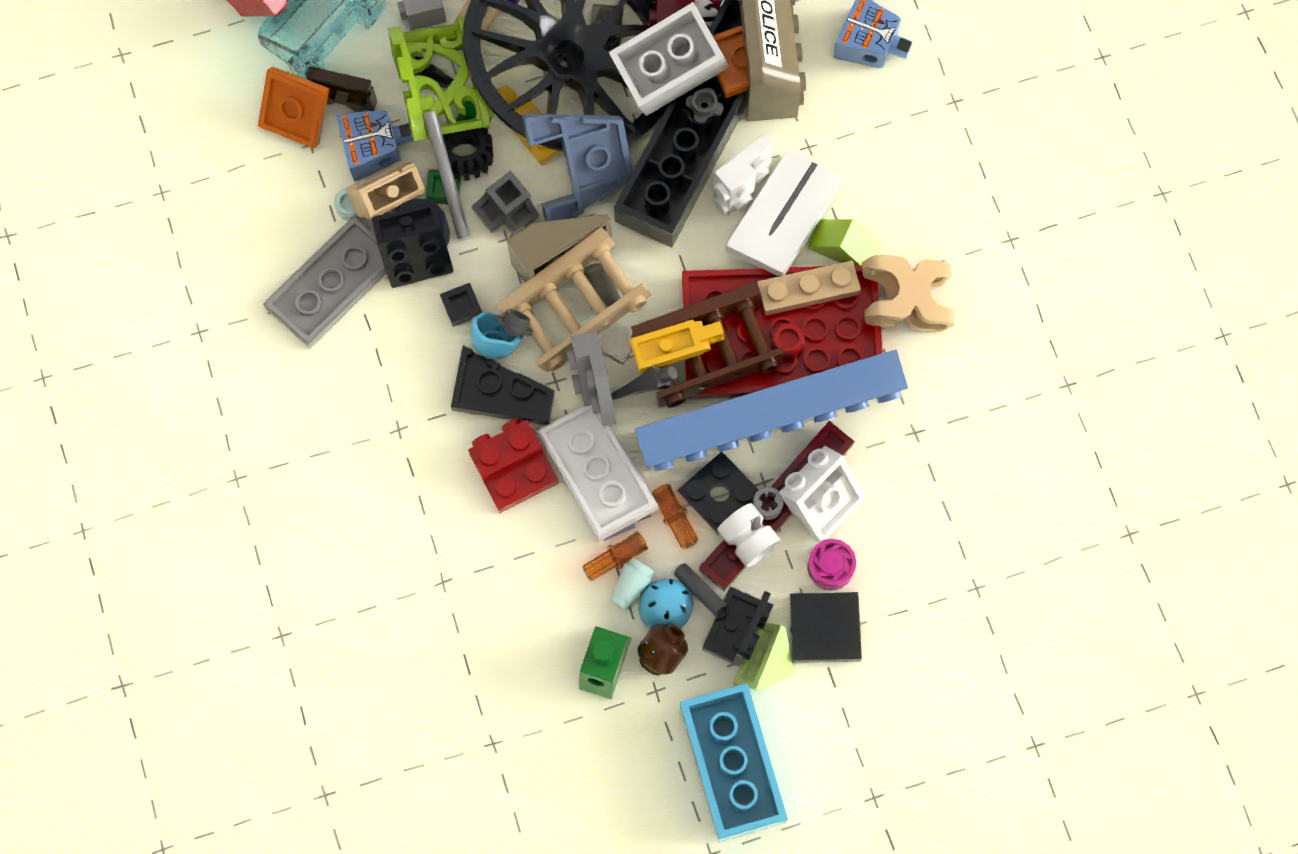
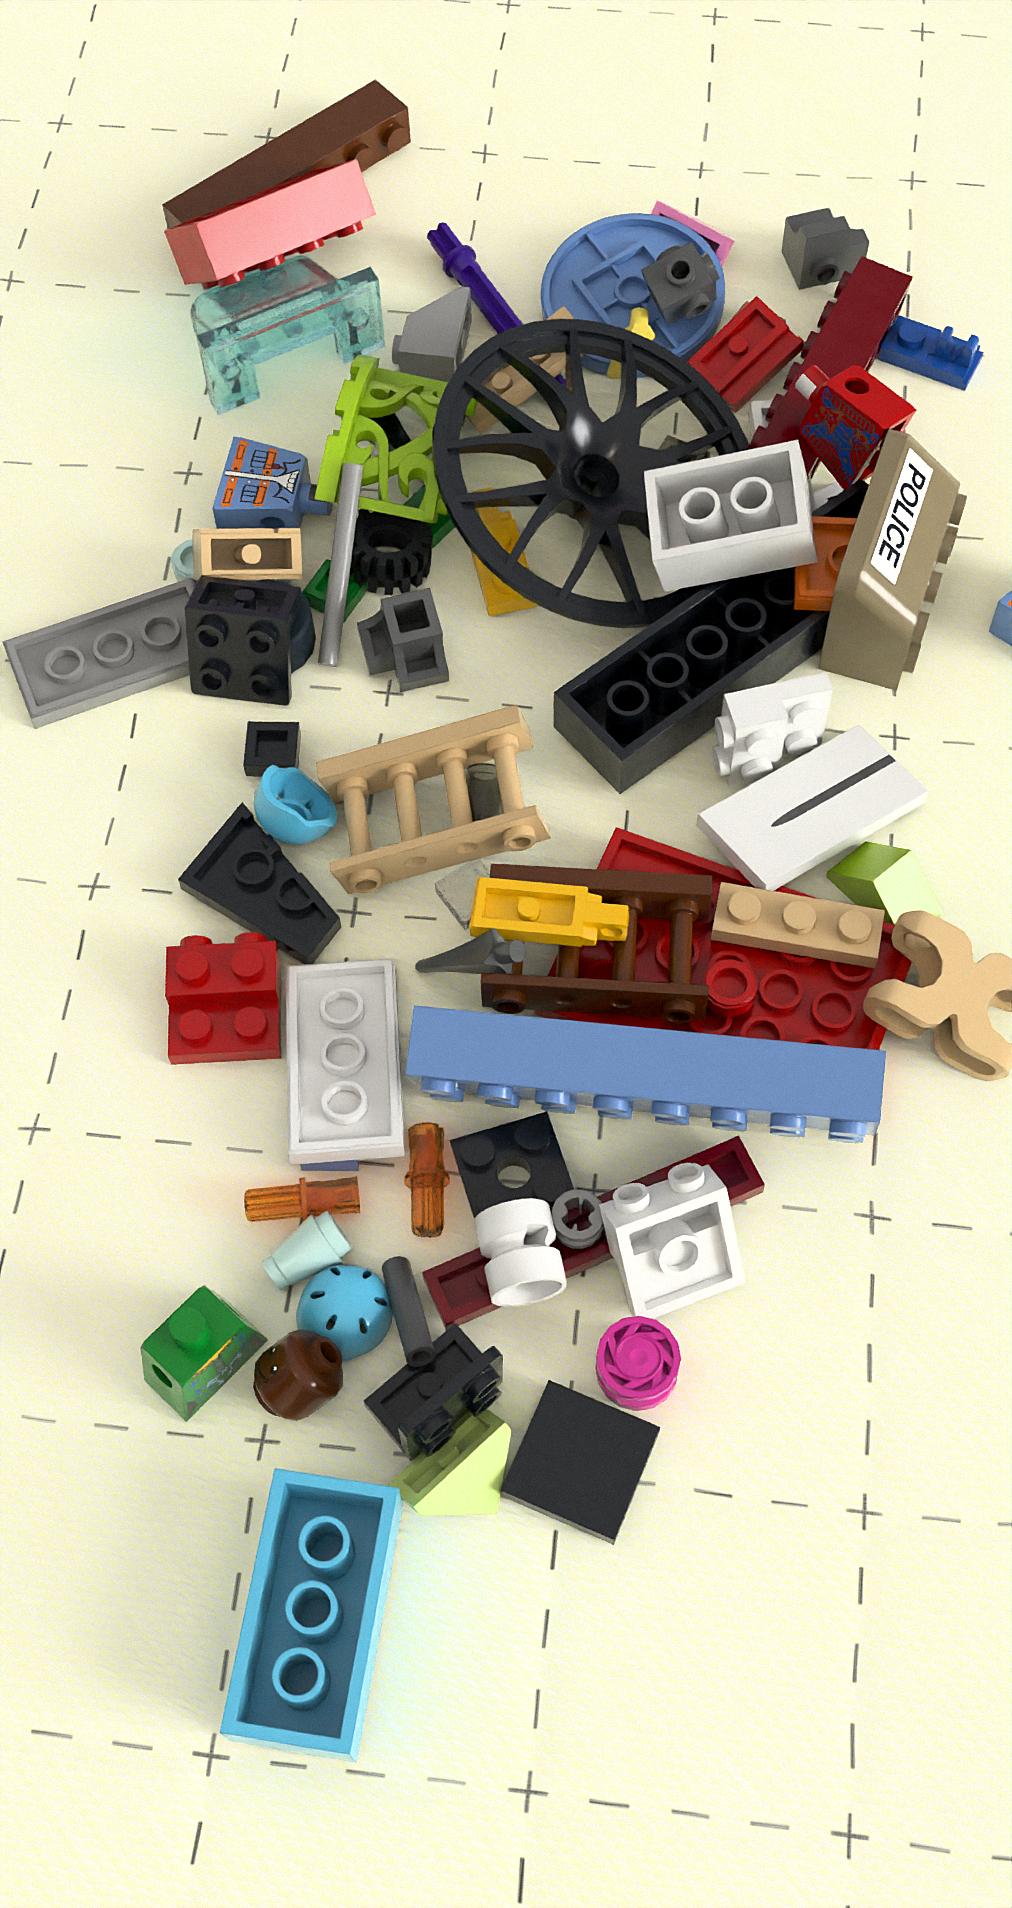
camera: 25 degrees right, 10 degrees down
(293, 107) = (183, 408): orange tile -> none
(345, 89) = (261, 409): dark brown plate -> none
(514, 323) = (328, 796): dark grey plate -> none
(544, 242) = (429, 696): dark tan slope -> none
(591, 375) = (401, 912): light grey plate -> none
(593, 153) = (561, 611): sand blue wing -> none
(702, 96) = (756, 591): dark grey plate -> none

